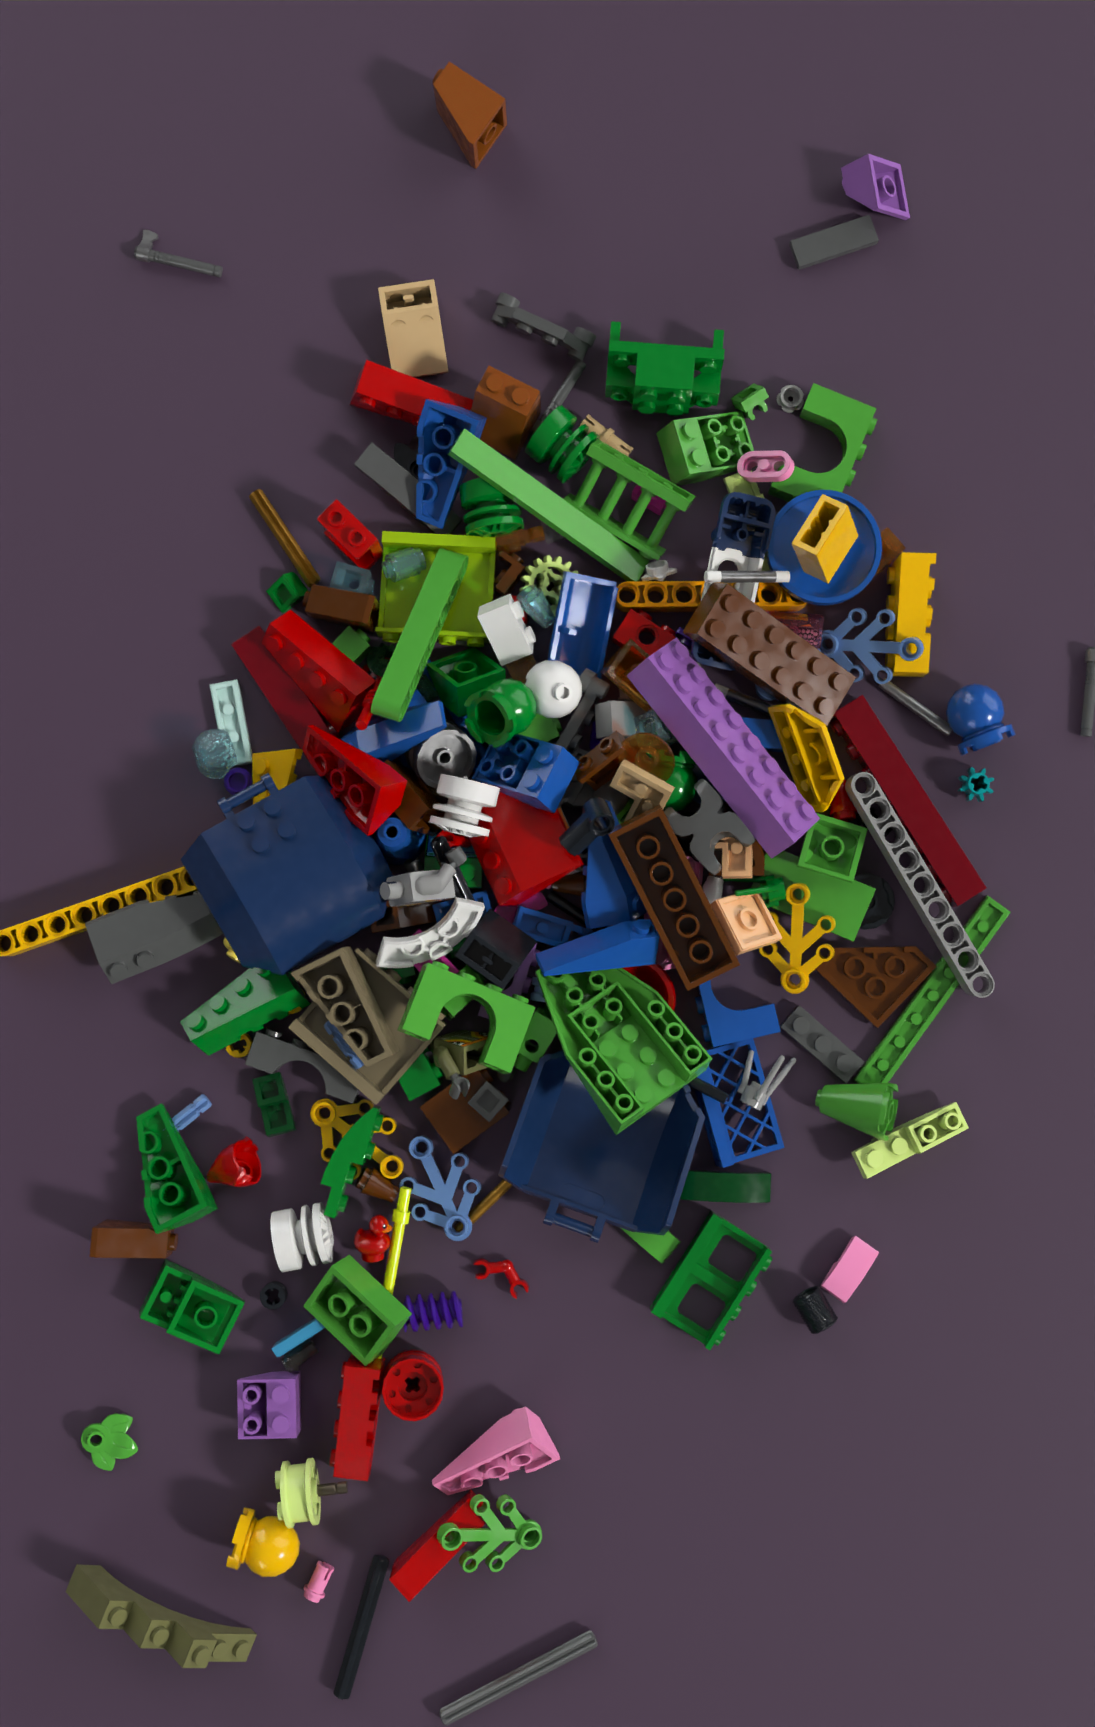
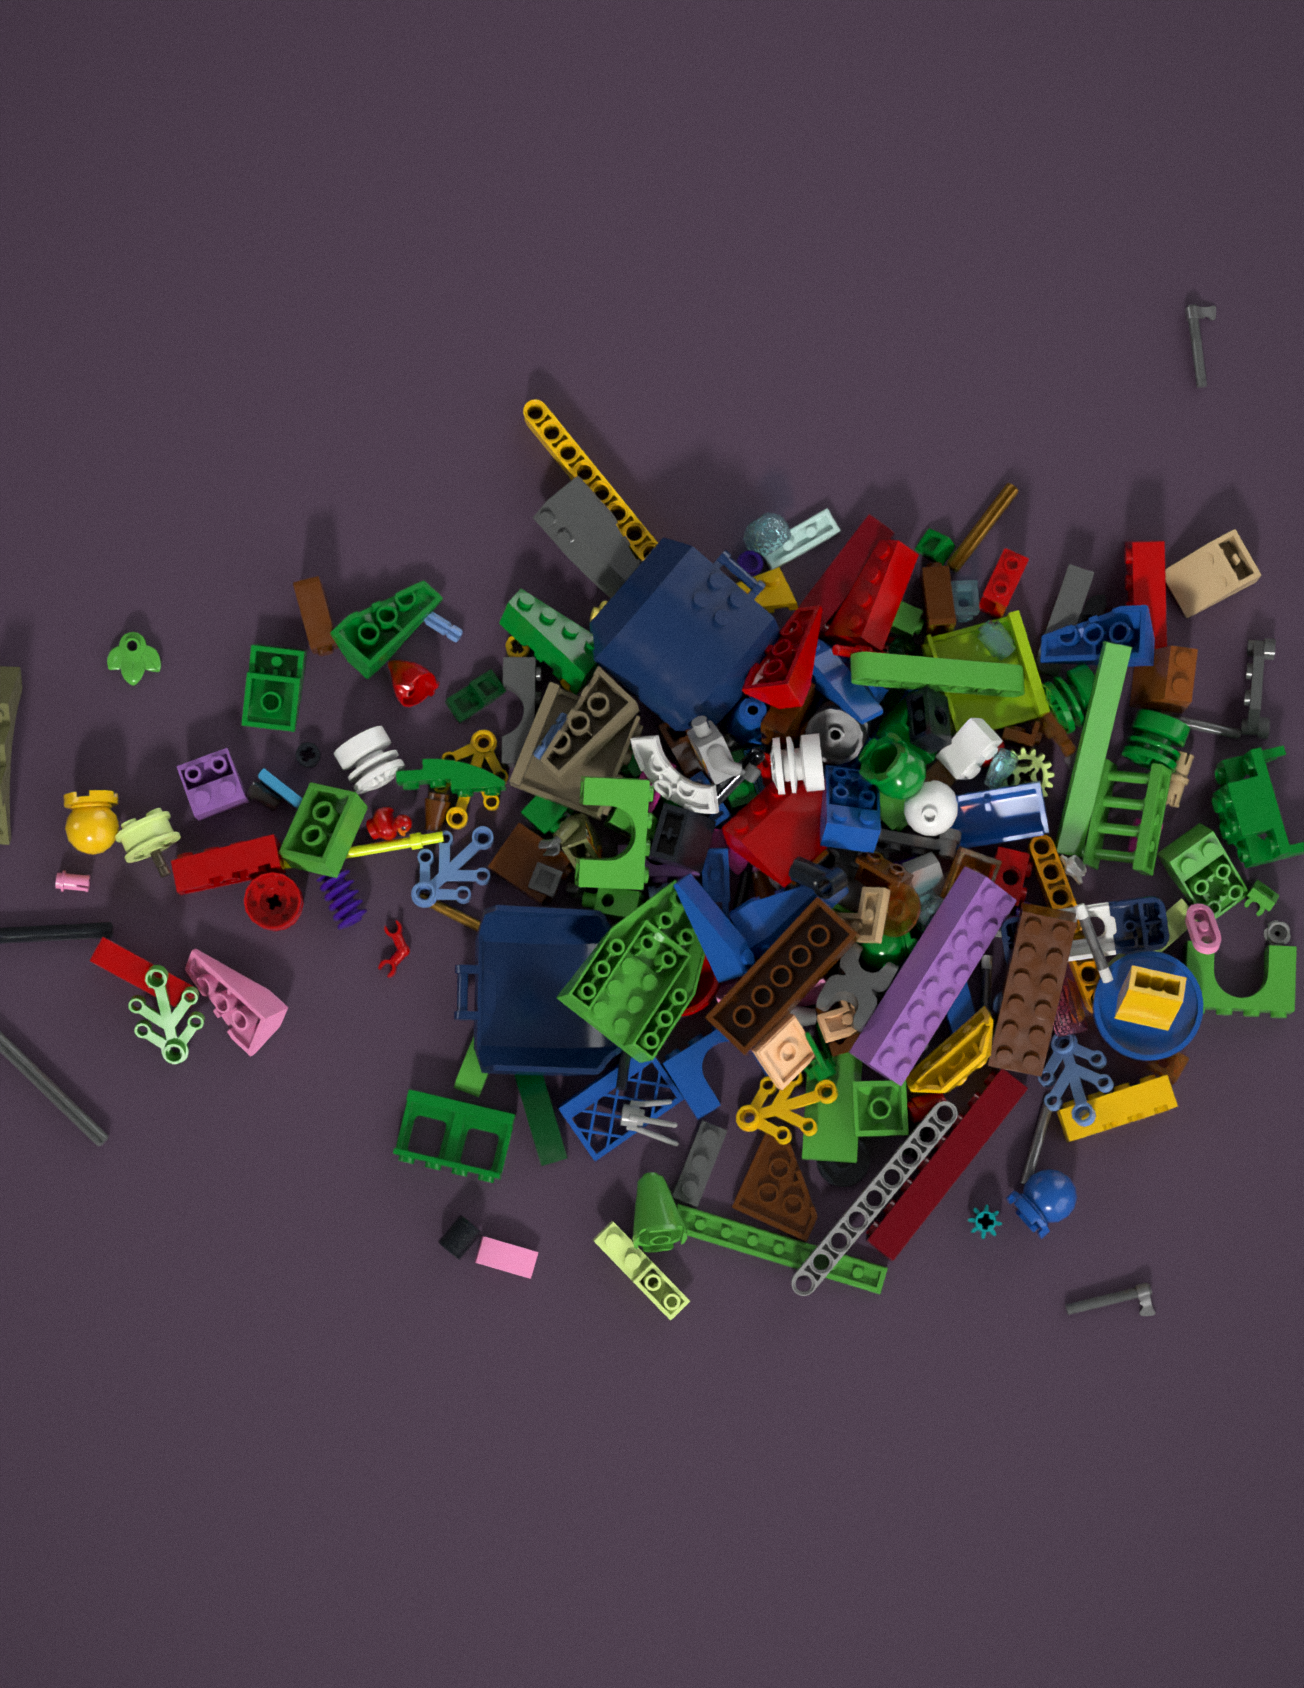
camera: 65 degrees right, 5 degrees down
(463, 659) = (928, 720): none -> black brick

